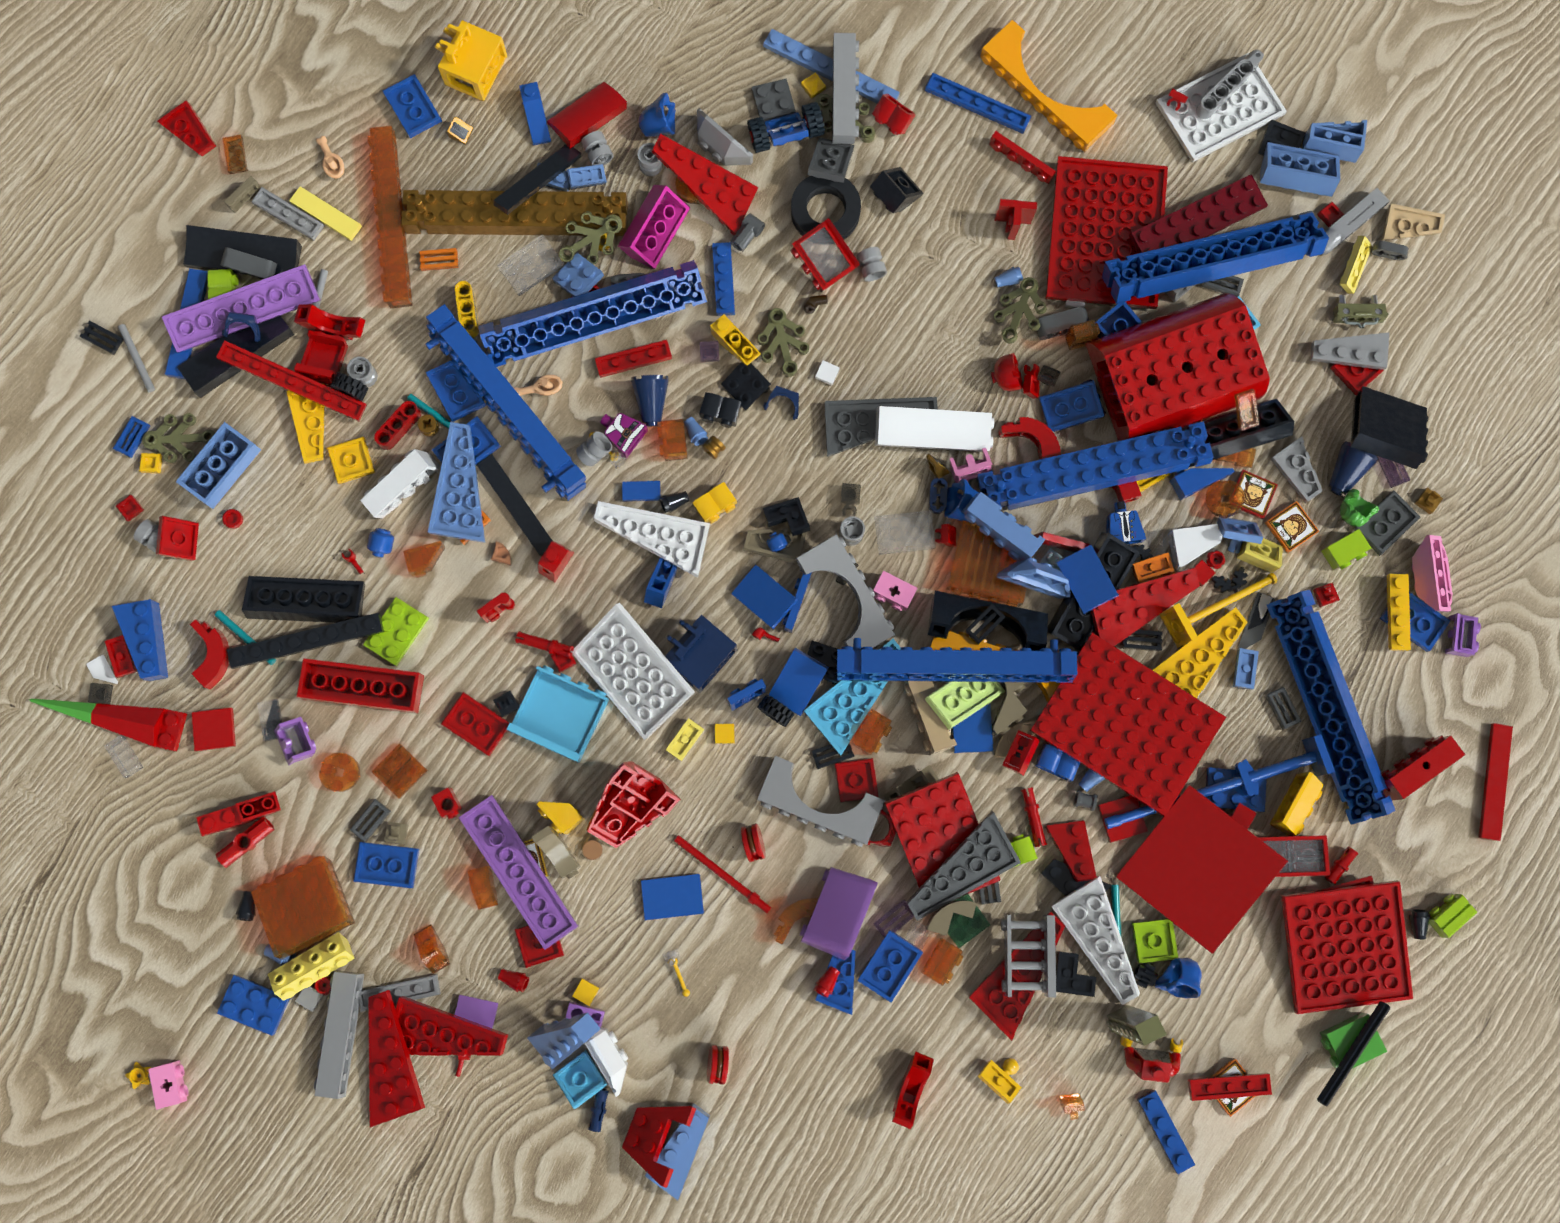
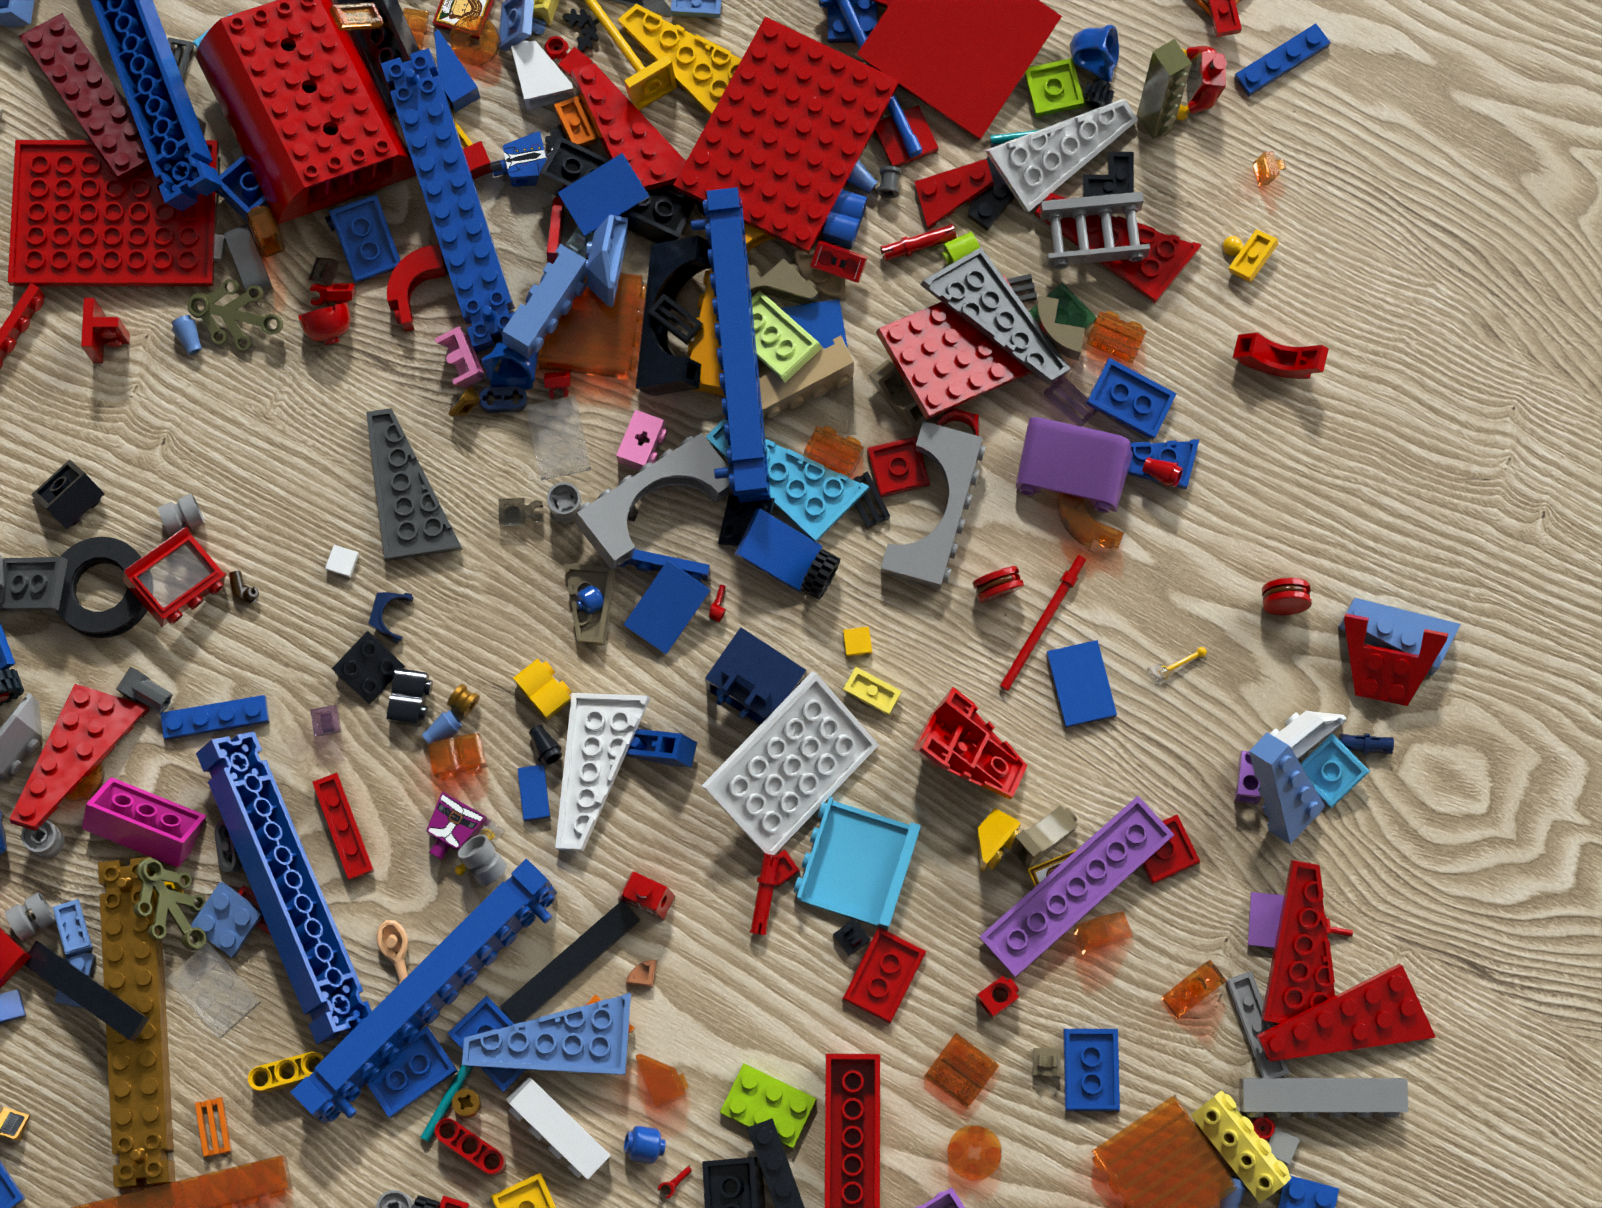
camera: 90 degrees left, 5 degrees down
(381, 807) = (1054, 1113): dark grey tile -> none
(491, 611) = (726, 968): red plate -> none
(515, 980) = (1218, 874): red cone -> none
(585, 992) = (1219, 780): yellow tile -> none
(592, 850) = (1034, 795): medium nougat tile -> none
(650, 397) = (399, 792): dark blue cone -> none
(733, 340) = (309, 686): yellow slope -> none
(740, 697) = (804, 608): blue plate -> none
(782, 339) = (298, 626): olive plant -> none
(790, 512) = (545, 589): black plate -> none
(933, 429) = (413, 410): white brick -> none
(1139, 639) = (671, 110): black tile -> none

